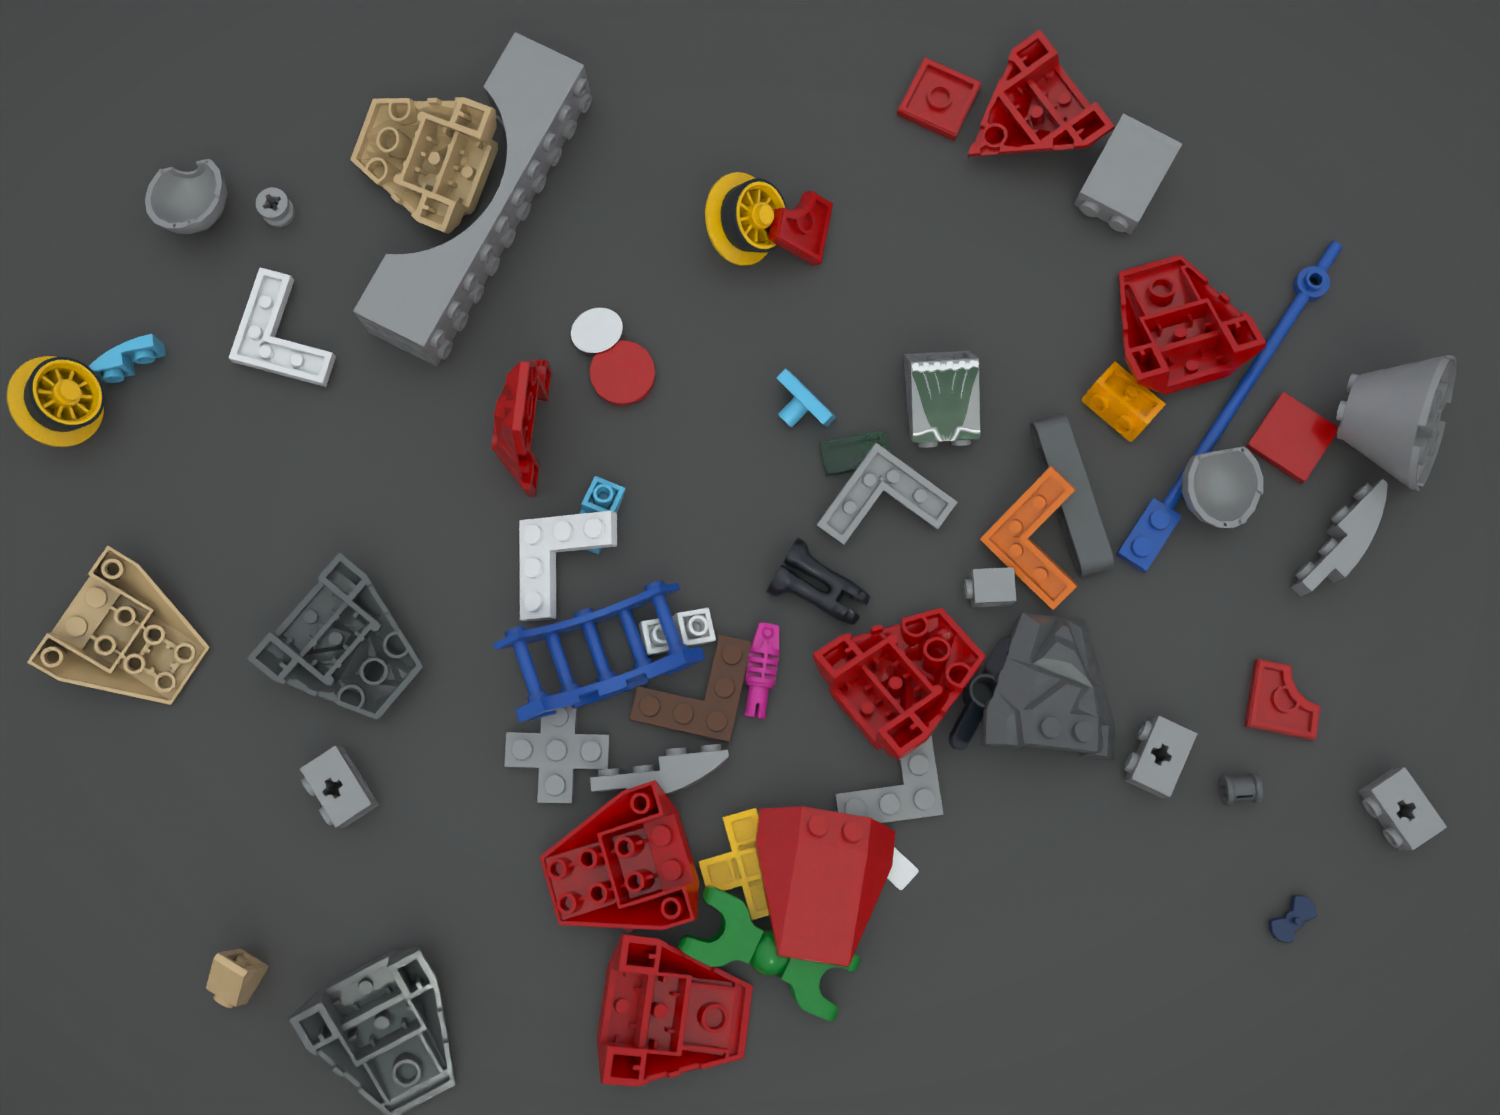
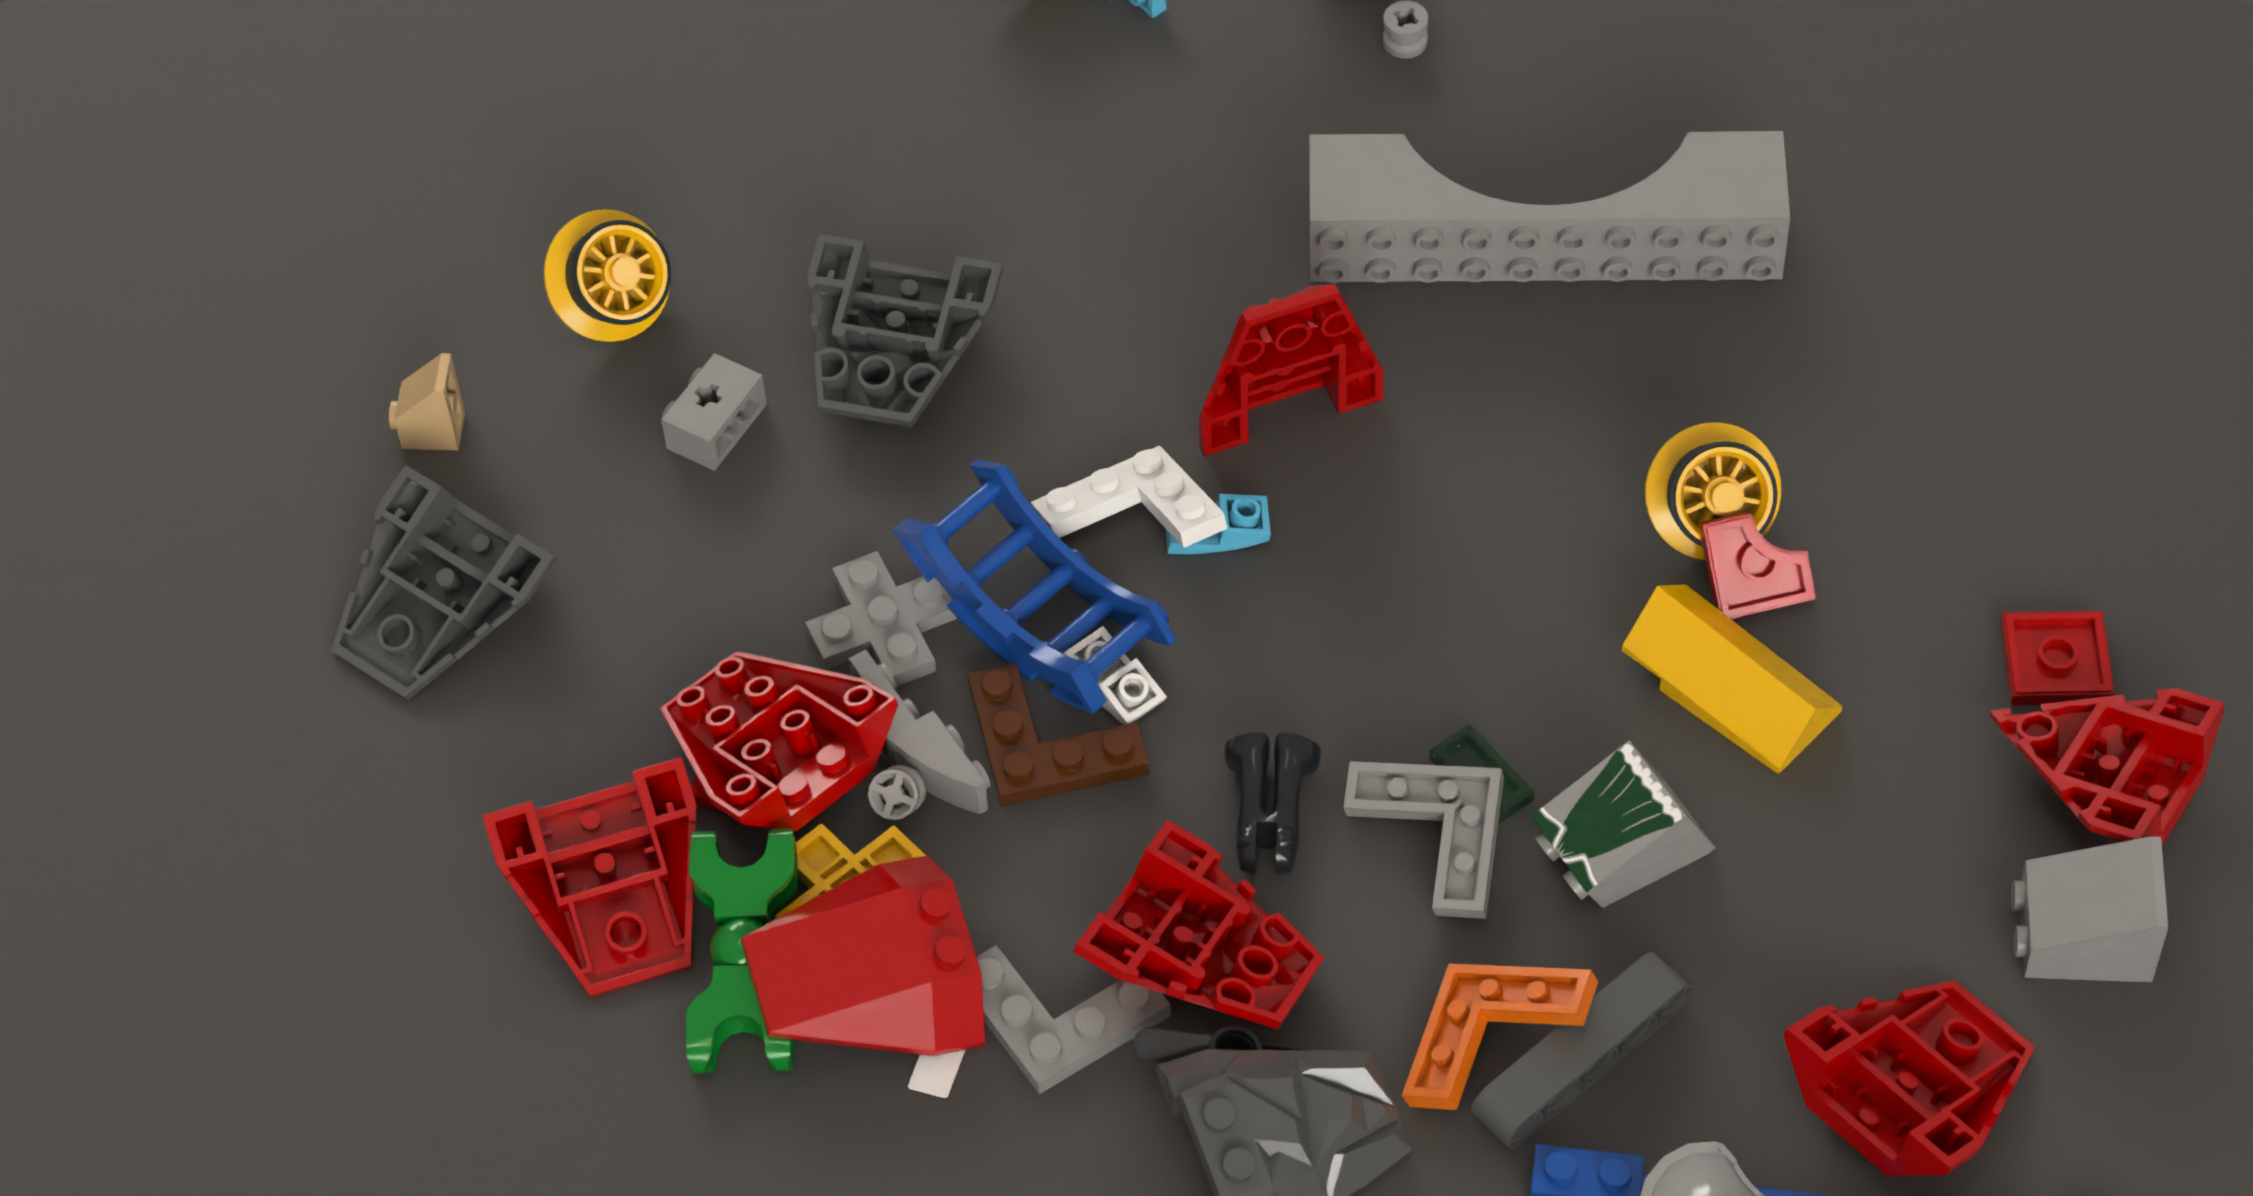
camera: 65 degrees right, 25 degrees down
(122, 636) = (781, 124): tan wedge -> none
(193, 810) = (607, 275): none -> yellow piece
(256, 340) = (1223, 86): white plate -> none
(429, 155) = (1570, 134): tan wedge -> none
(596, 330) = (1464, 418): white sticker -> none
(622, 374) = (1424, 470): red tile -> none
(708, 808) = (889, 799): none -> light grey wheel
(761, 668) = (1119, 788): dark pink hinge -> none
(802, 402) = (1513, 679): medium azure tile -> none
(865, 279) = (1728, 677): none -> yellow slope
(991, 587) = (1388, 1005): light grey brick -> none
(1122, 402) = (1757, 1059): light orange bracket -> none

